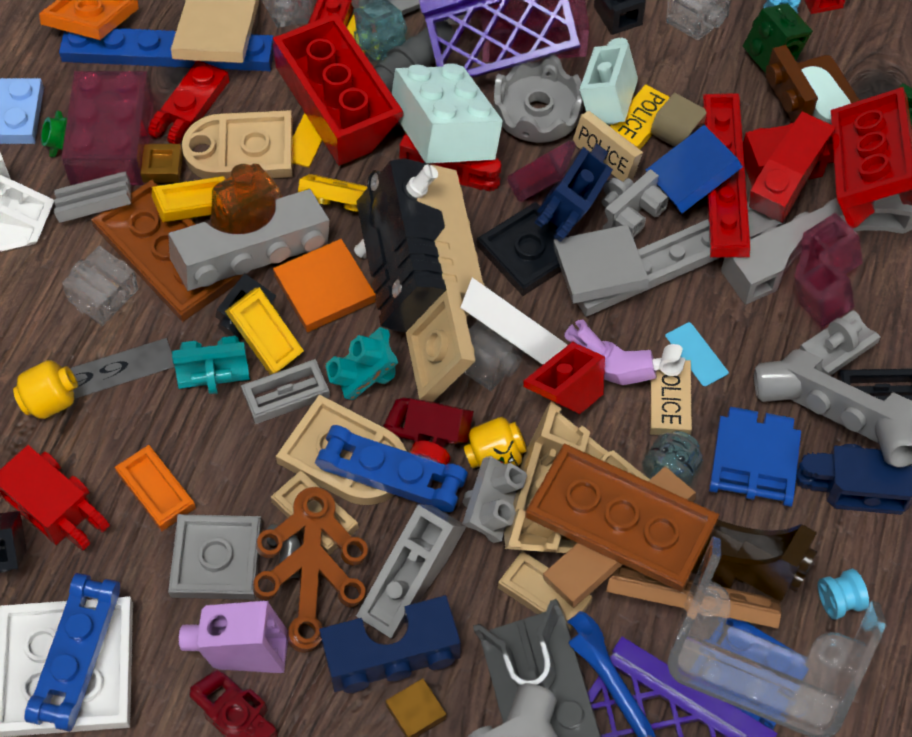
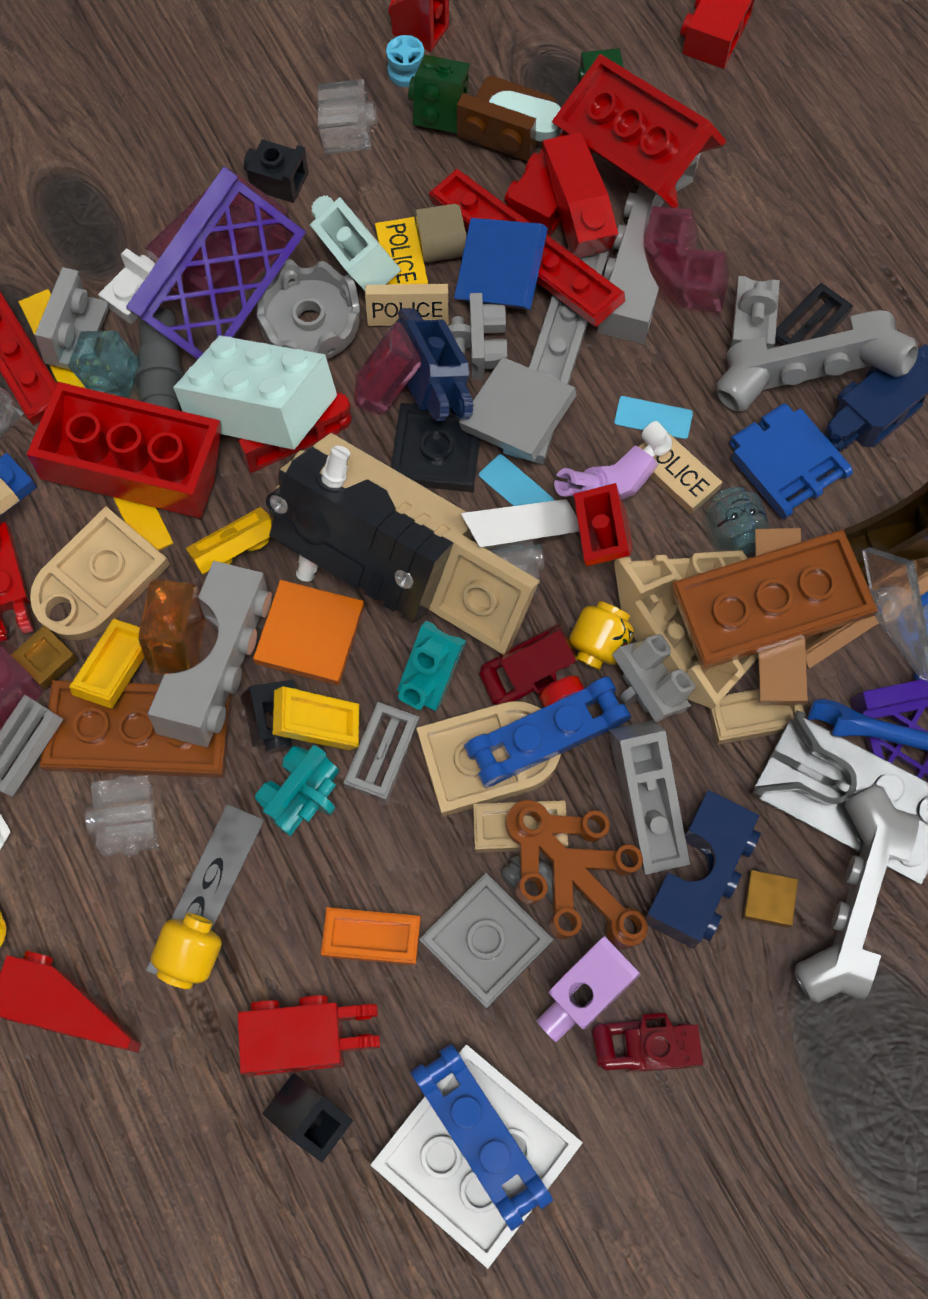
camera: 45 degrees left, 10 degrees up
(554, 311) = (513, 483): none -> medium azure sticker

